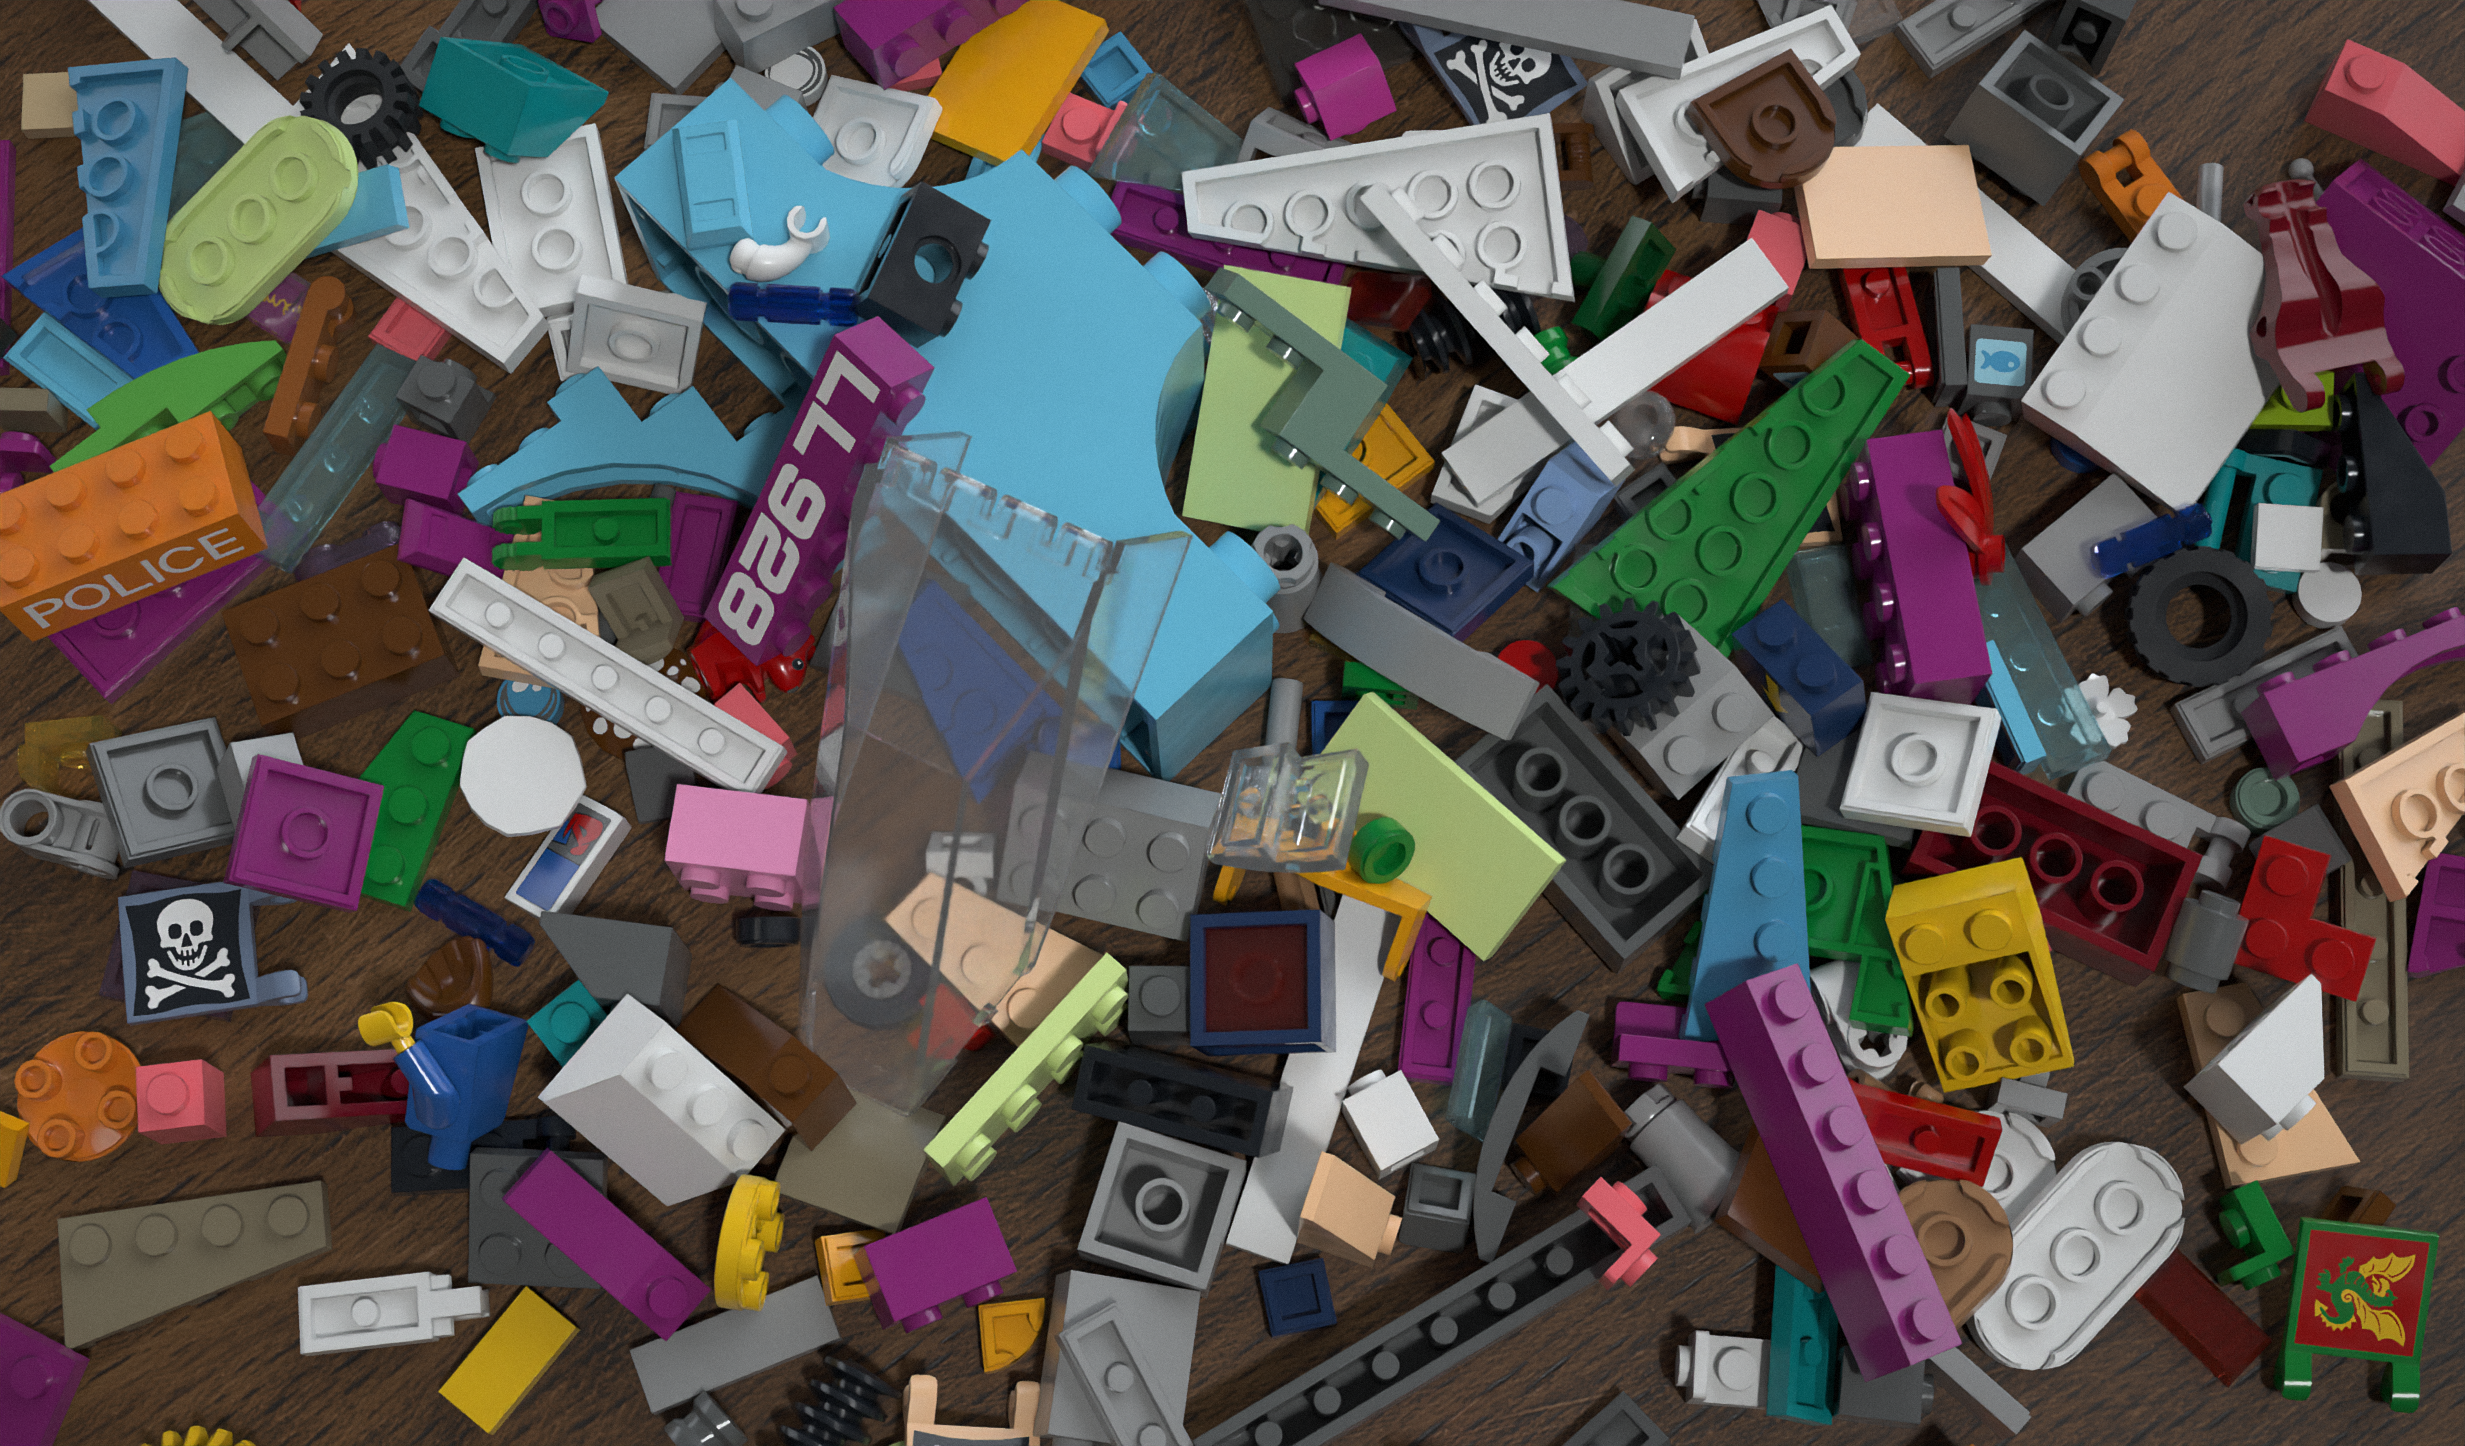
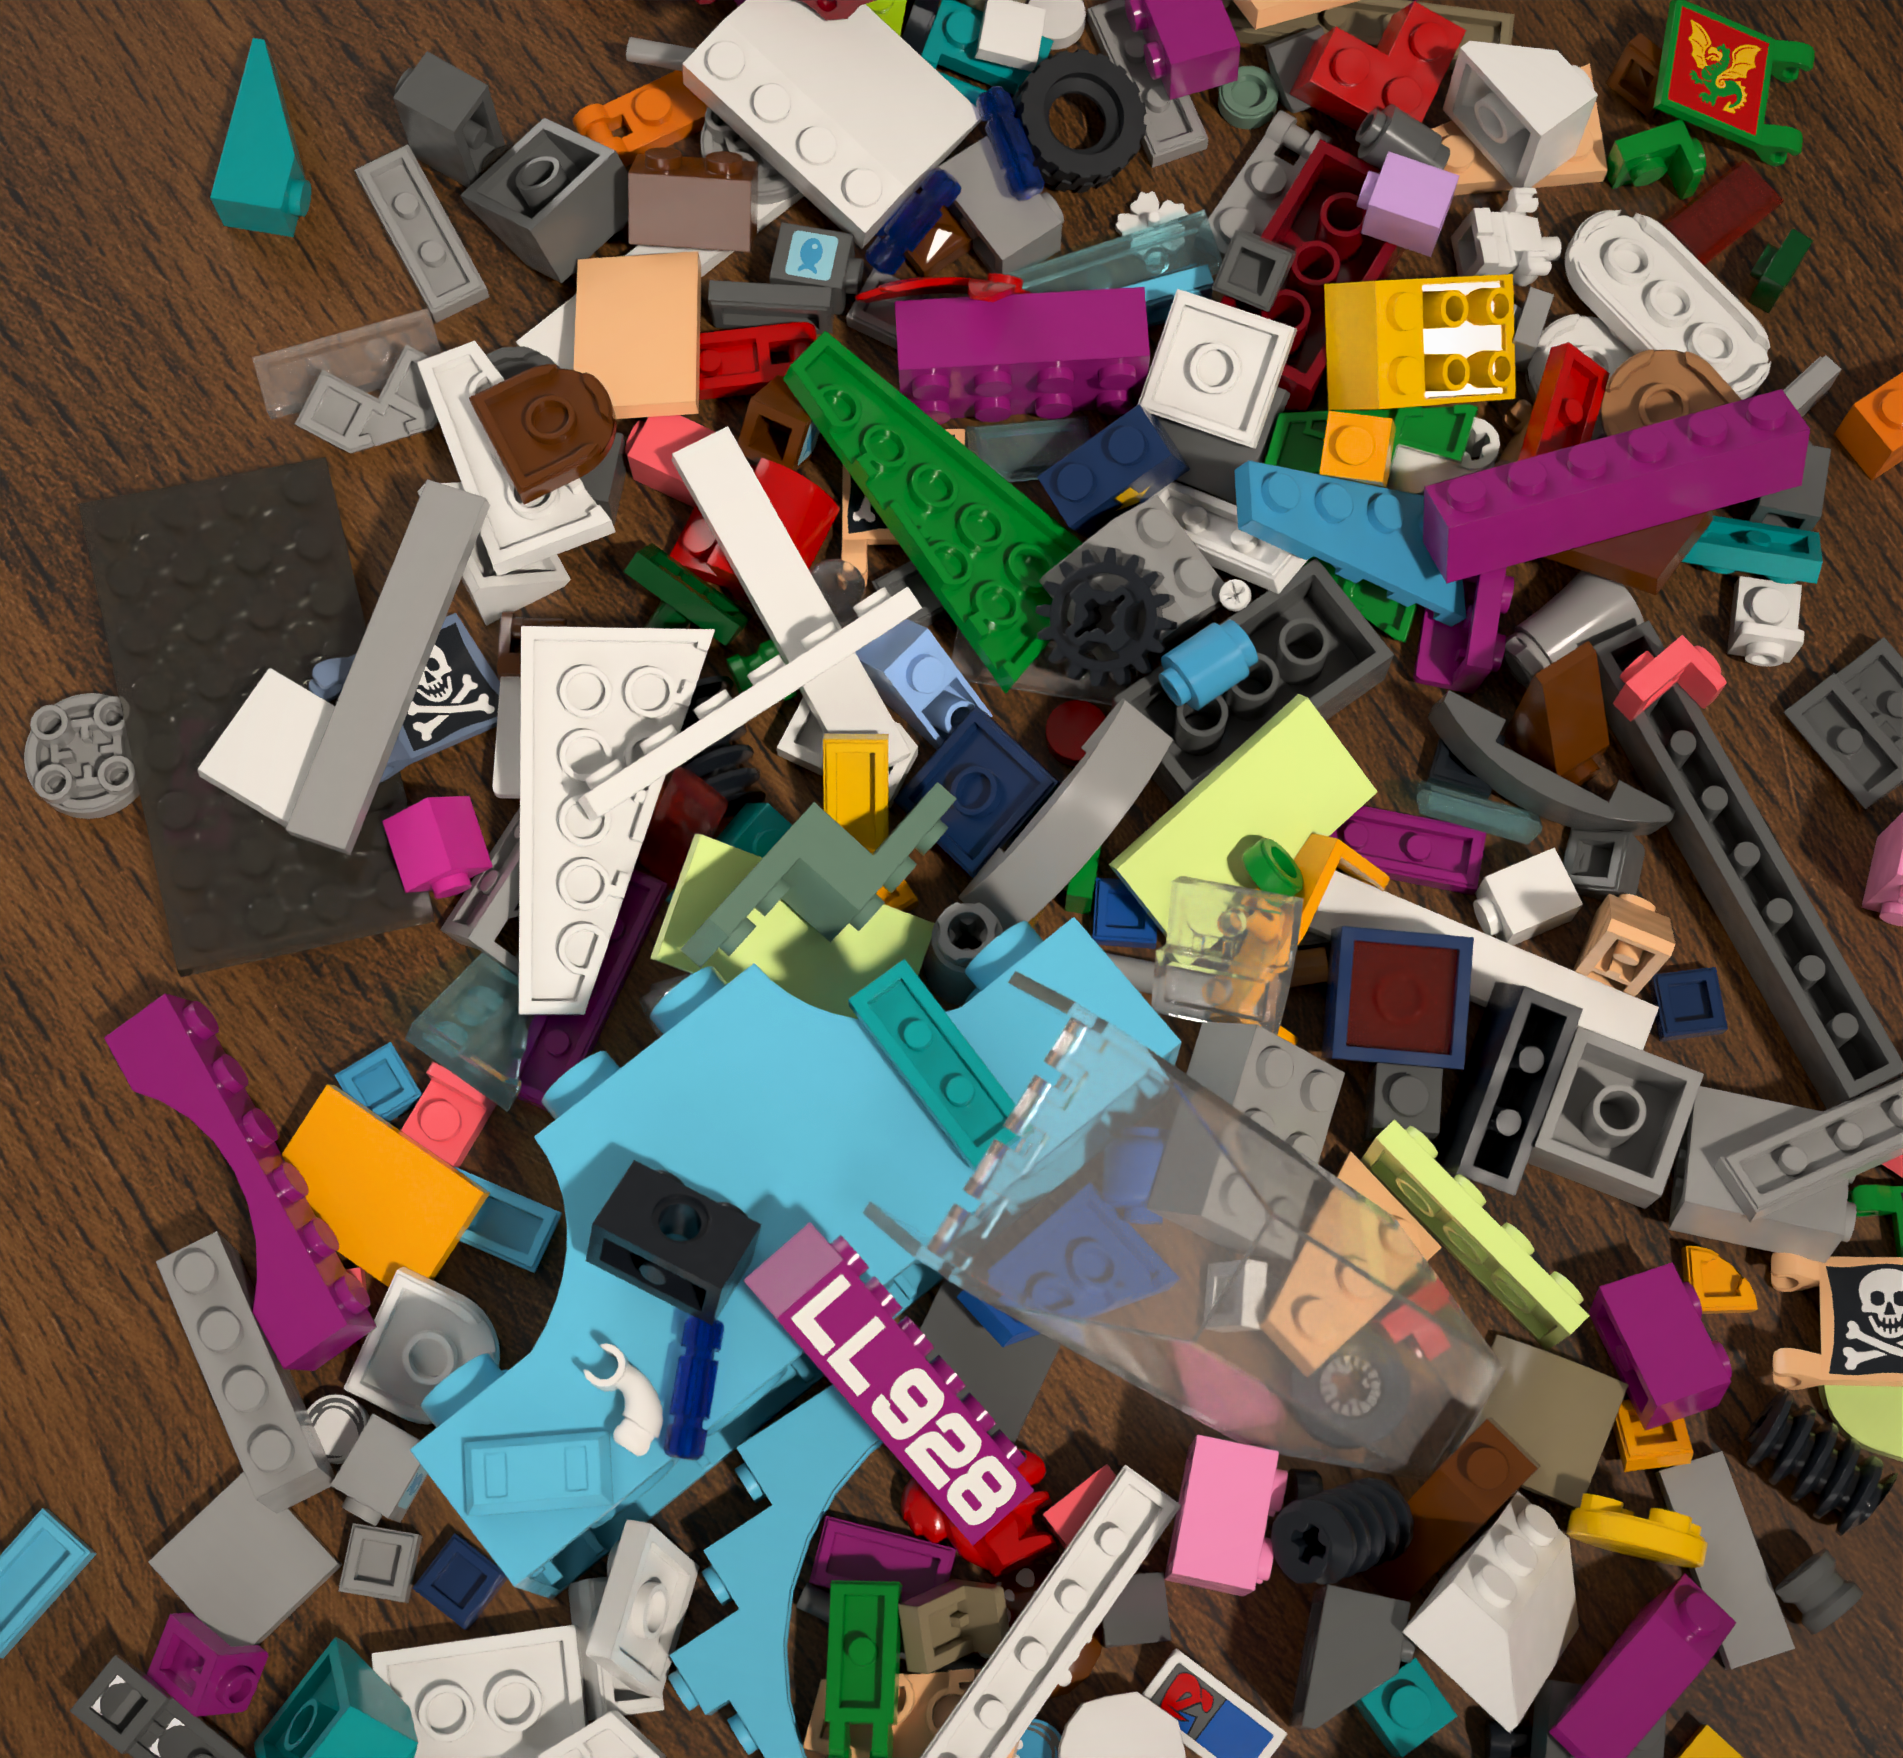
camera: 85 degrees left, 0 degrees up
(728, 947) = (1342, 1531): none -> black piece
(1127, 473) = (935, 1061): none -> teal plate
(1427, 451) = (858, 785): none -> yellow tile
(1584, 764) = (1207, 664): none -> dark azure brick
(1670, 797) = (1235, 595): none -> white piece
(1841, 905) = (1358, 448): none -> light orange brick
(2038, 792) = (1254, 269): none -> dark grey slope
(2040, 240) = (693, 200): none -> brick
(2049, 487) = (940, 246): none -> reddish brown tile
(2055, 460) = (913, 221): none -> clear blue axle
(2122, 1075) = (1505, 241): none -> white piece
(2130, 940) = (1407, 203): none -> lavender brick
(2137, 1374) = (1777, 268): none -> dark green plate

